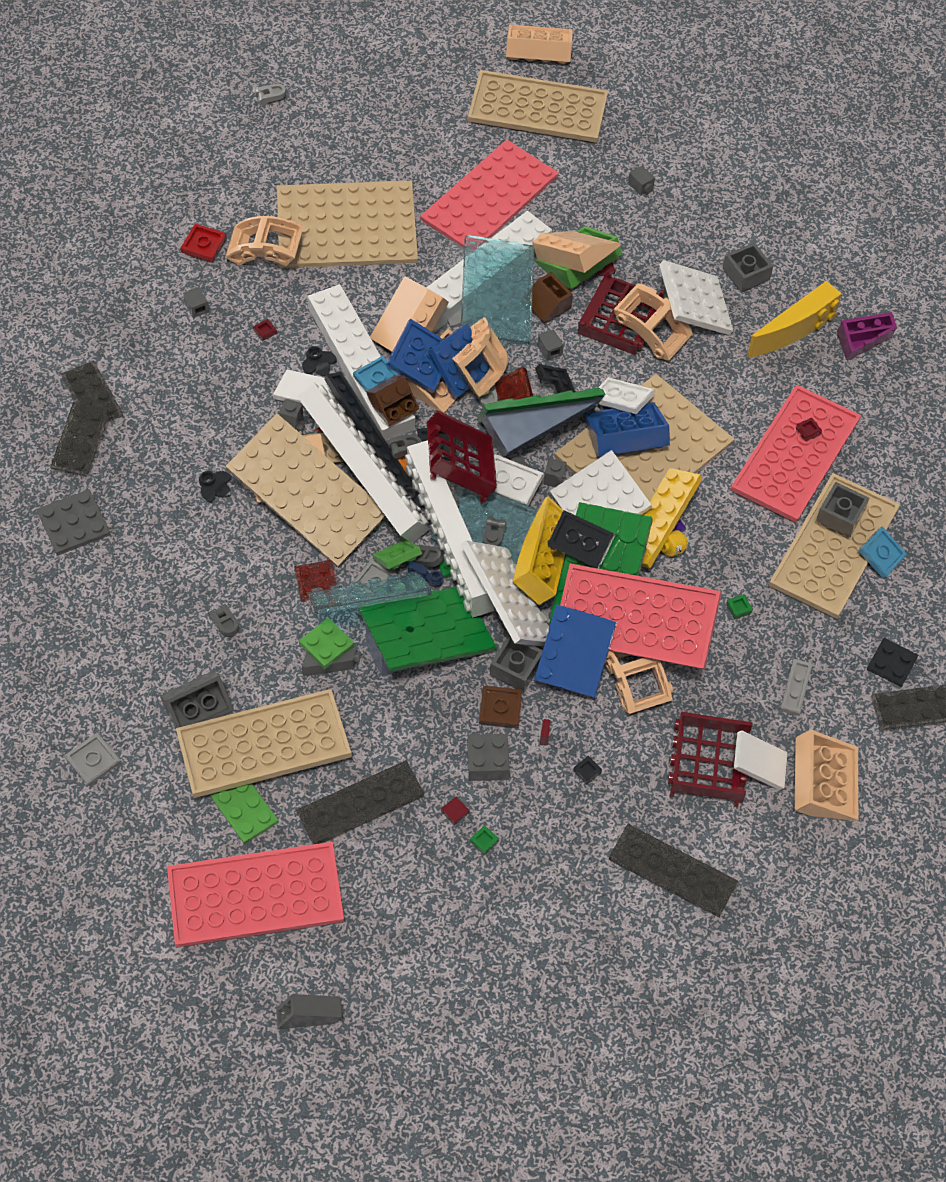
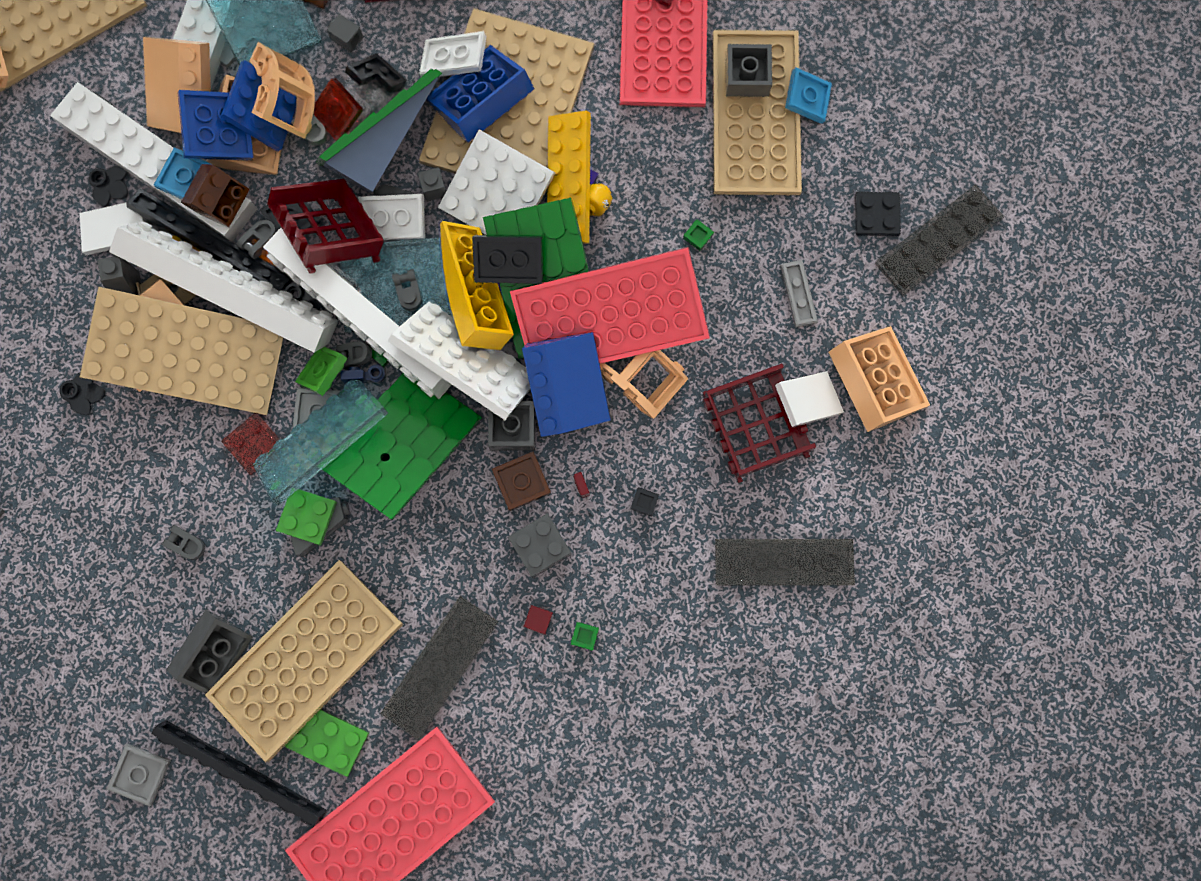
camera: 25 degrees left, 20 degrees up
(170, 801) = (239, 772): none -> black plate
(265, 330) = (28, 177): dark red tile -> none

